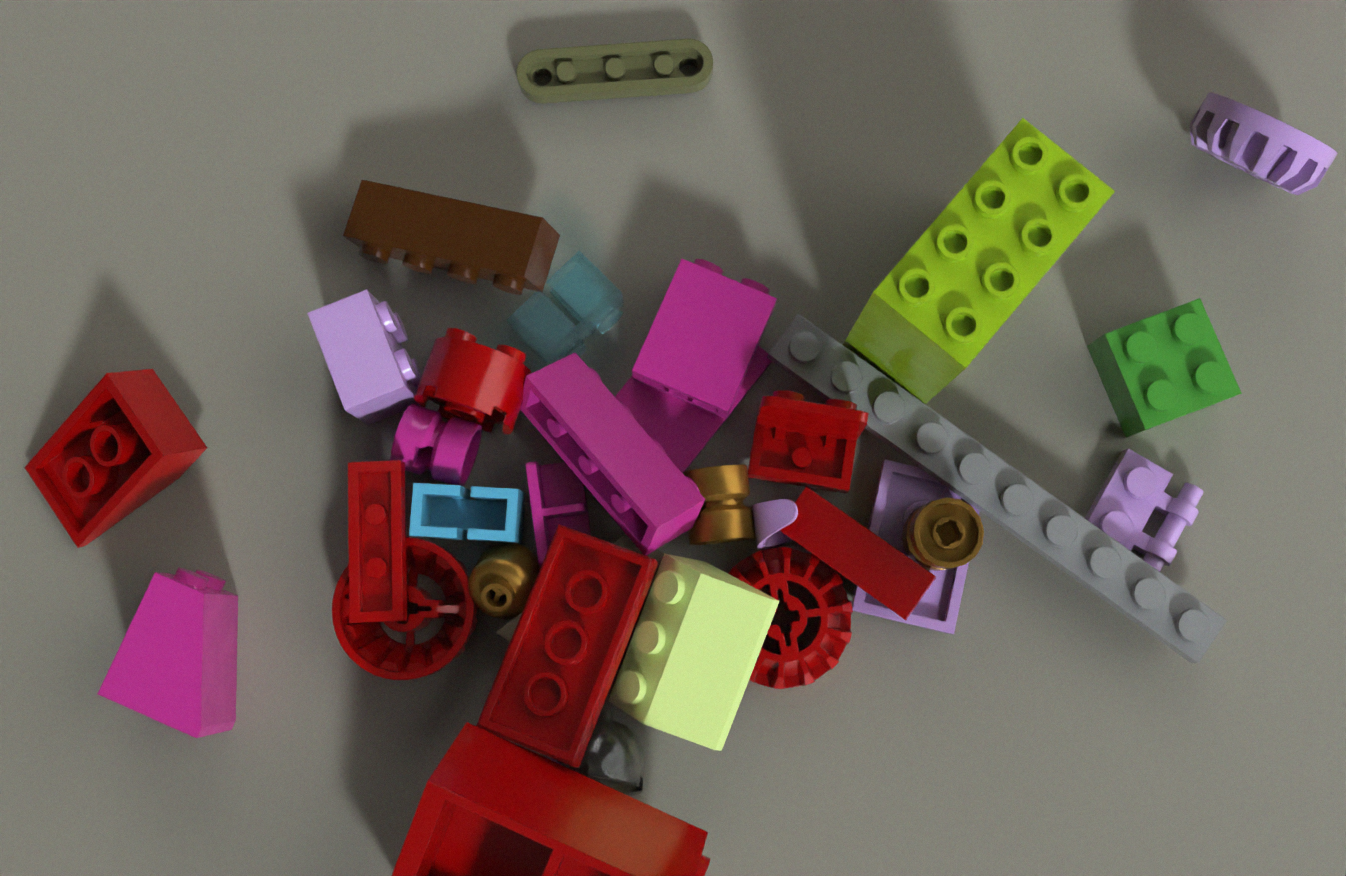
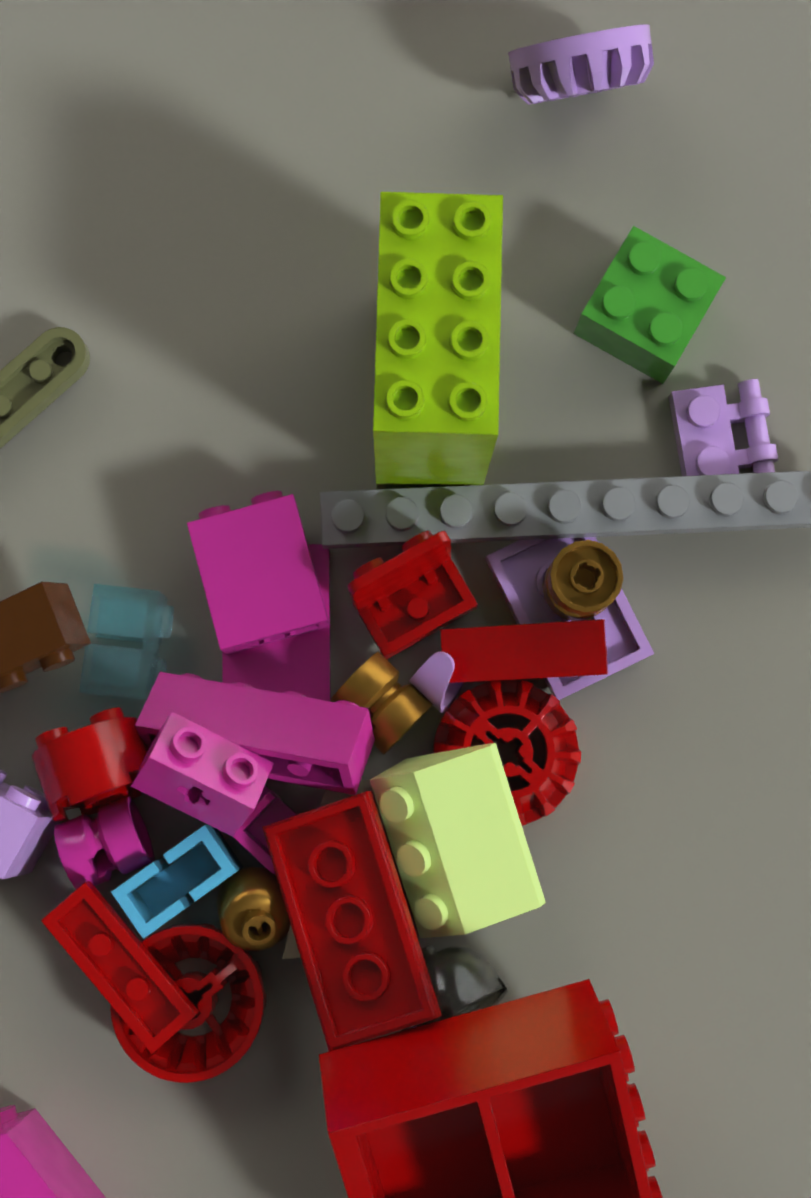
camera: 45 degrees left, 0 degrees up
(546, 451) = (202, 774): none -> dark pink brick

